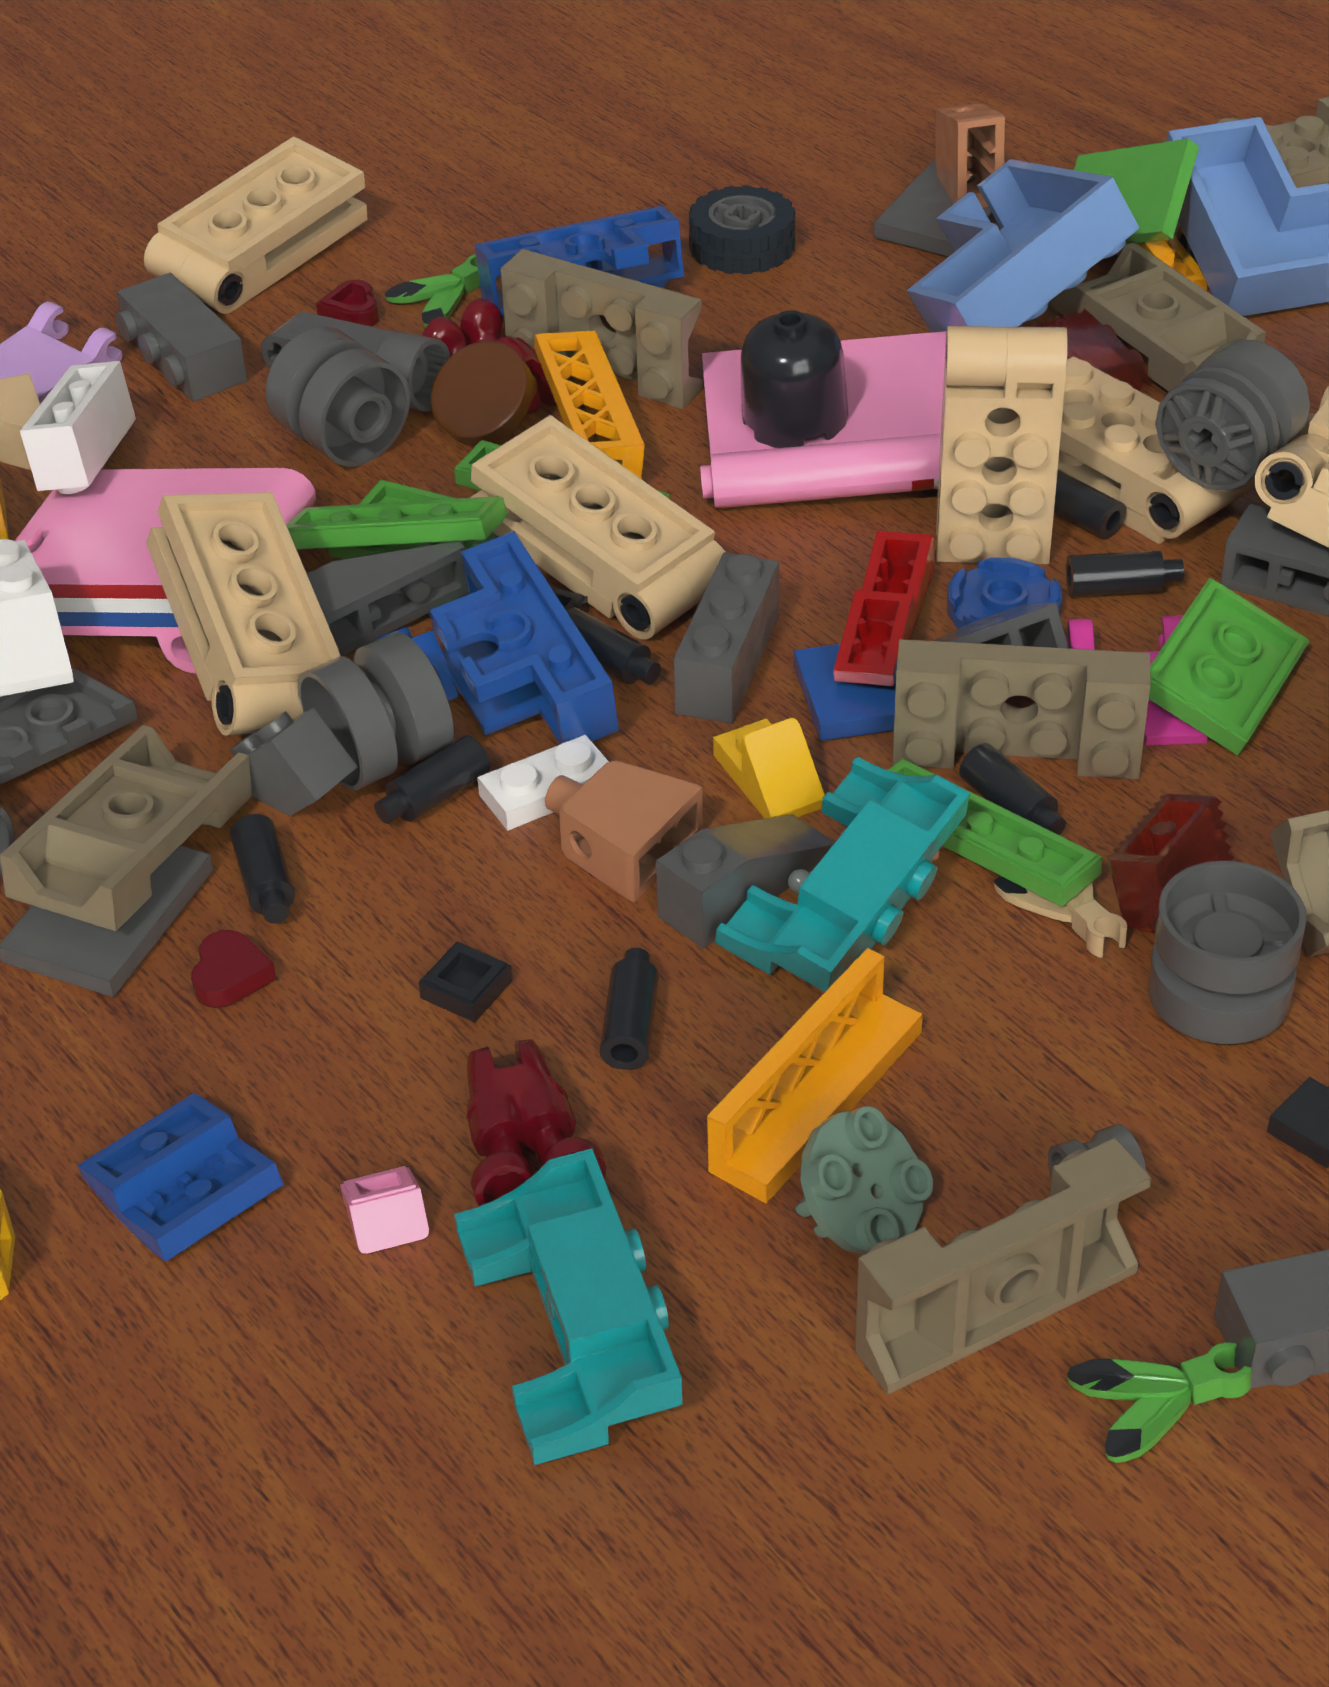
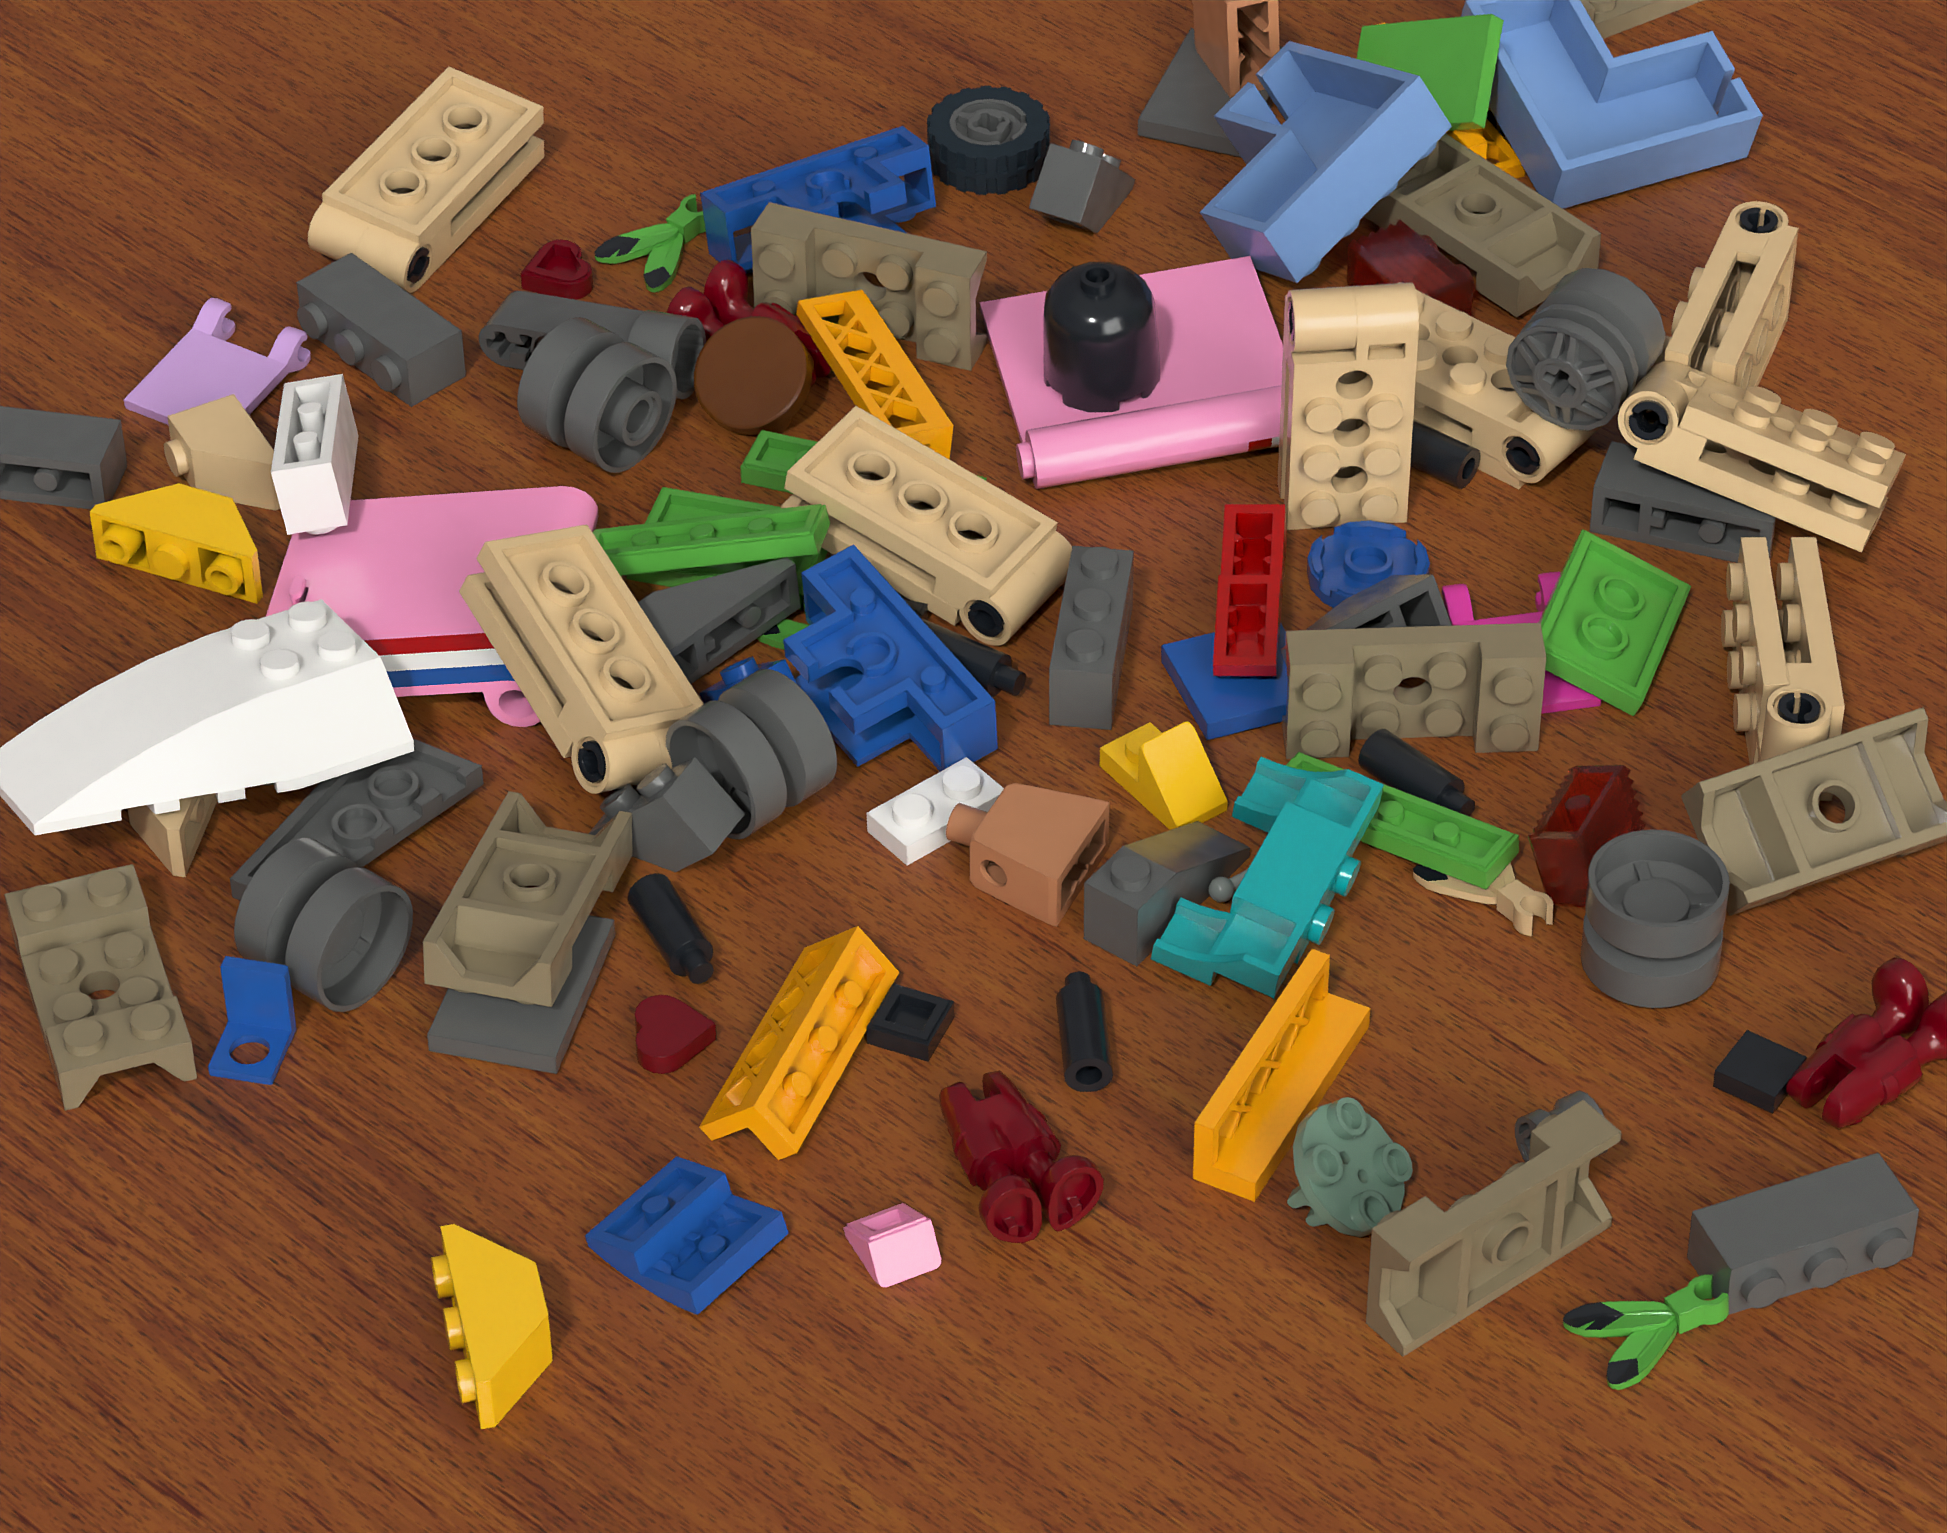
camera: 10 degrees left, 0 degrees up
(352, 994) = (803, 1043): none -> light orange fence
(433, 781) = (822, 820): black cylinder -> none
(595, 1300) = (1118, 1296): teal bracket -> none
(810, 266) = (1080, 186): none -> dark grey slope
(1121, 573) = (1485, 528): black cylinder -> none

